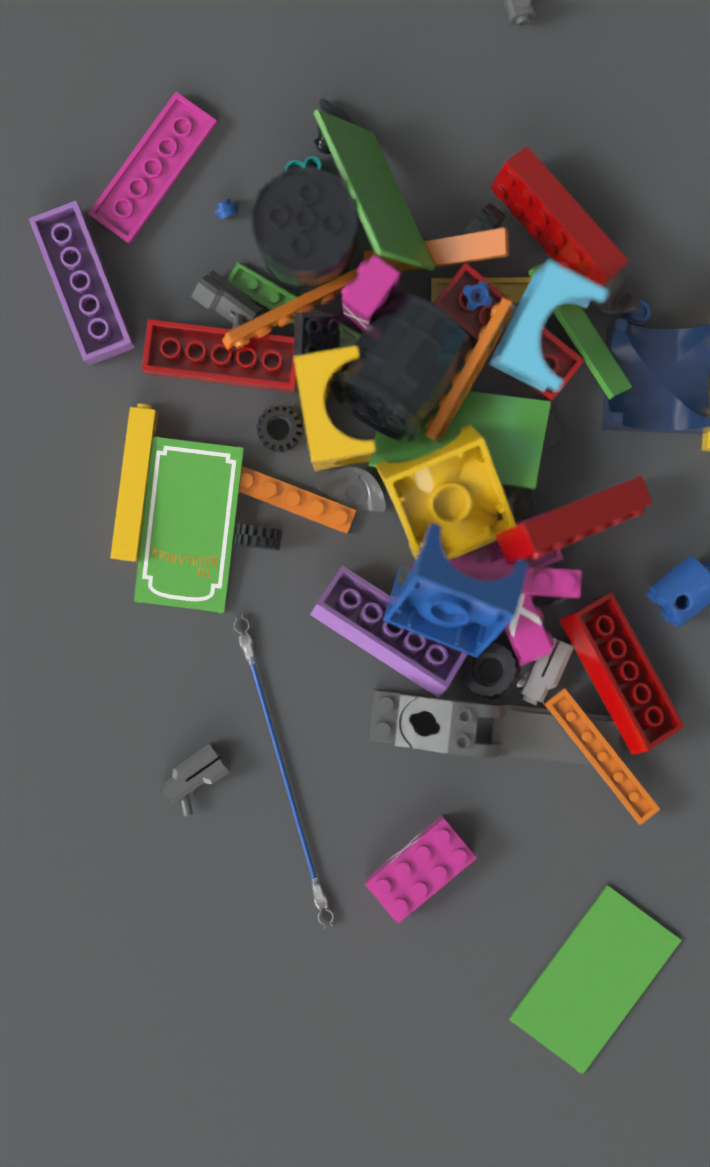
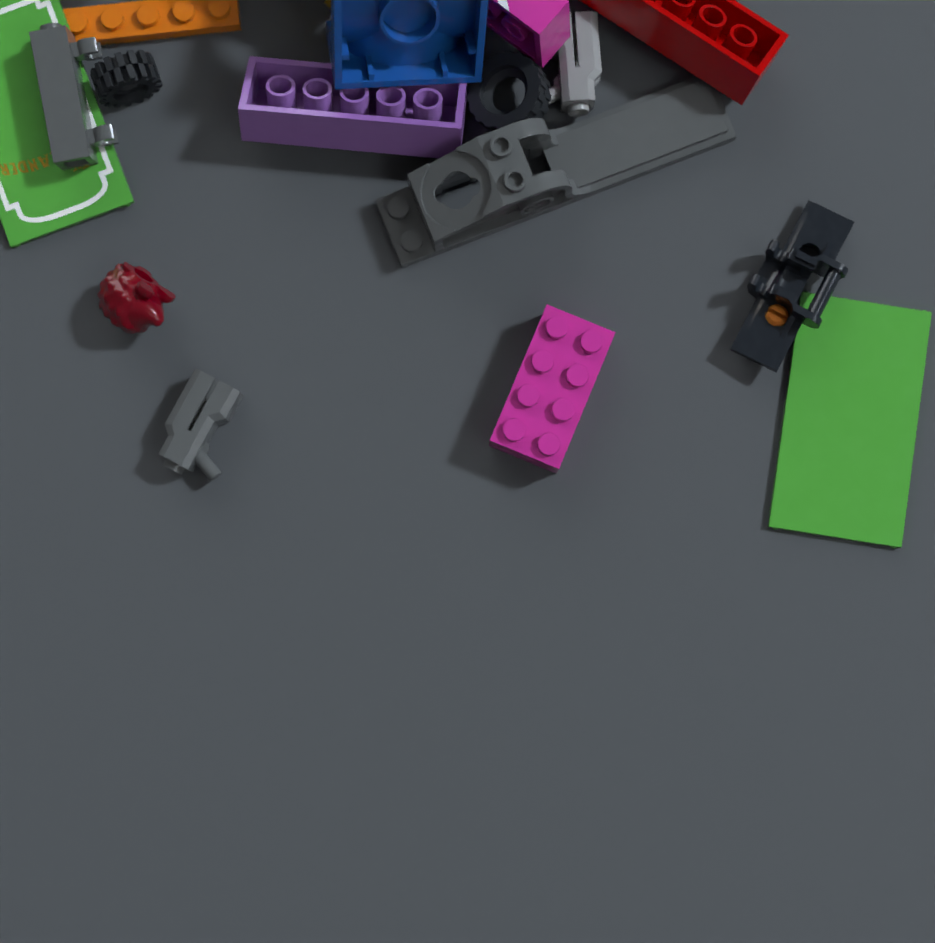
camera: 30 degrees left, 5 degrees down
(193, 679) = (133, 298): none -> dark red animal
(214, 531) = (64, 96): none -> dark grey brick
(320, 898) = (182, 226): piece -> none
(597, 874) = (781, 280): none -> black piece
(602, 756) = (705, 126): orange plate -> none

